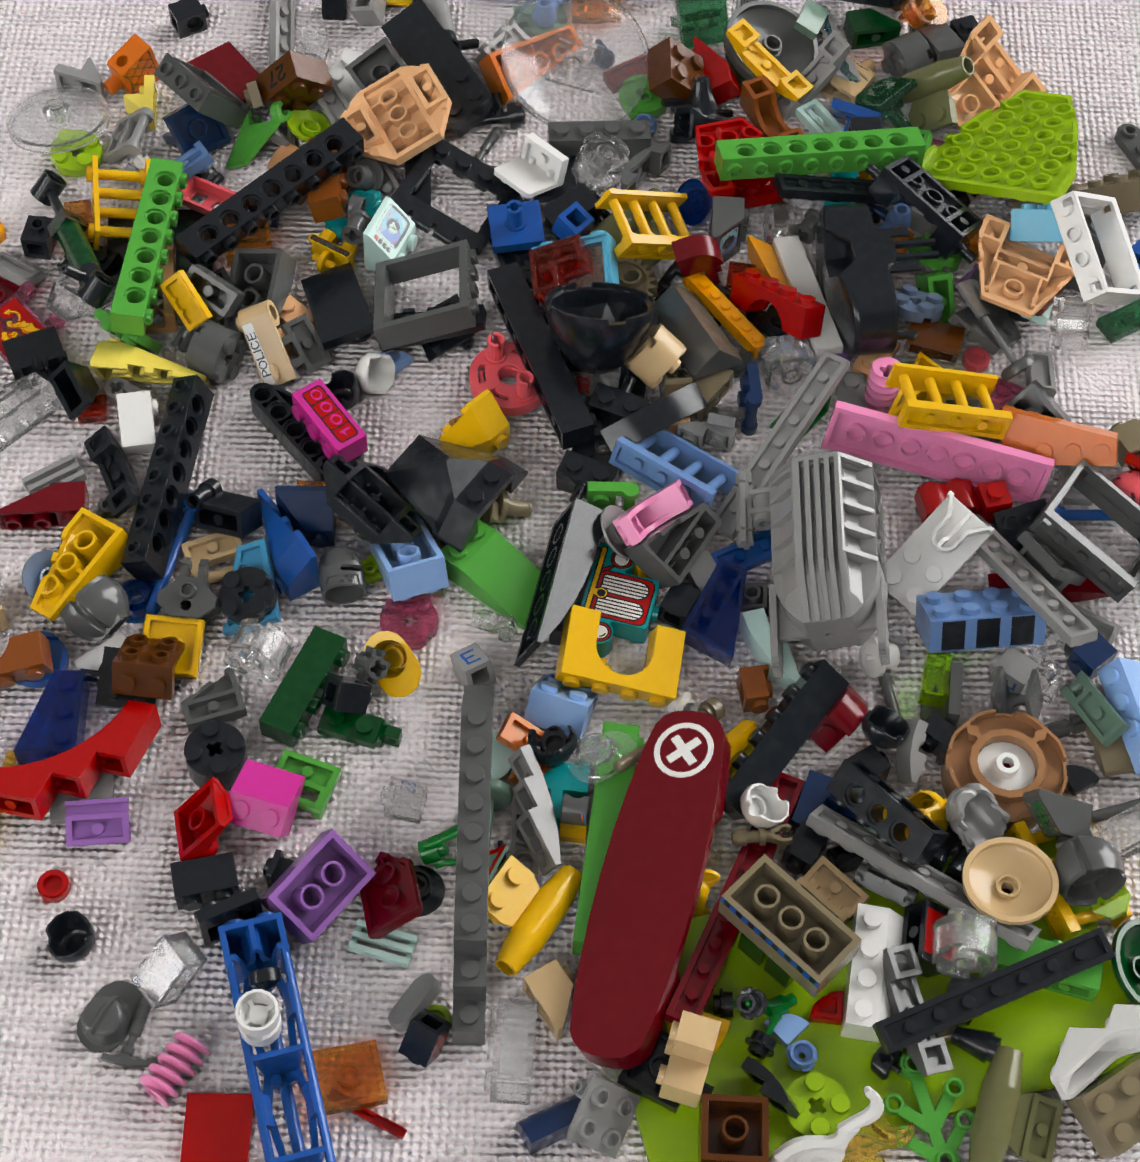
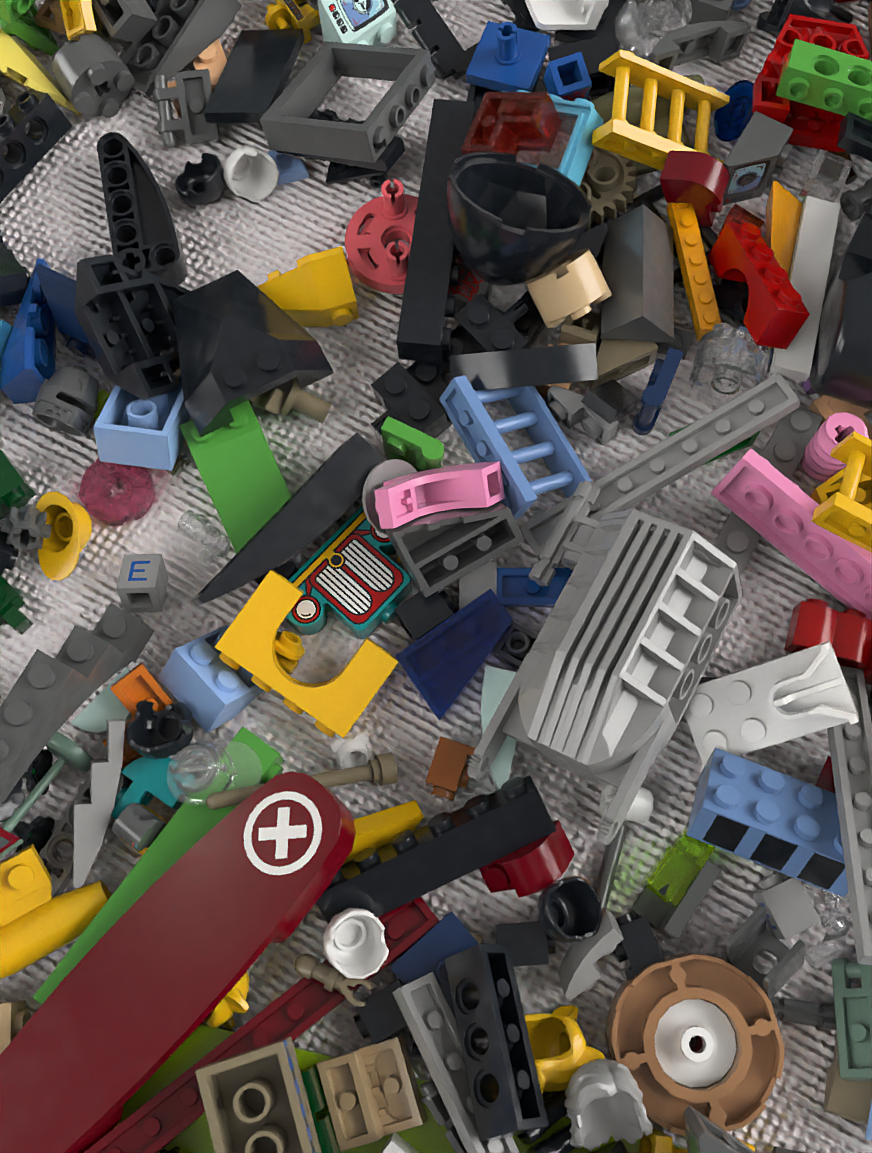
camera: 35 degrees right, 15 degrees up
(260, 331) = (144, 62): tan door -> none
(328, 421) = (150, 212): dark pink brick -> none
(1080, 779) = (790, 1095): black tile -> none

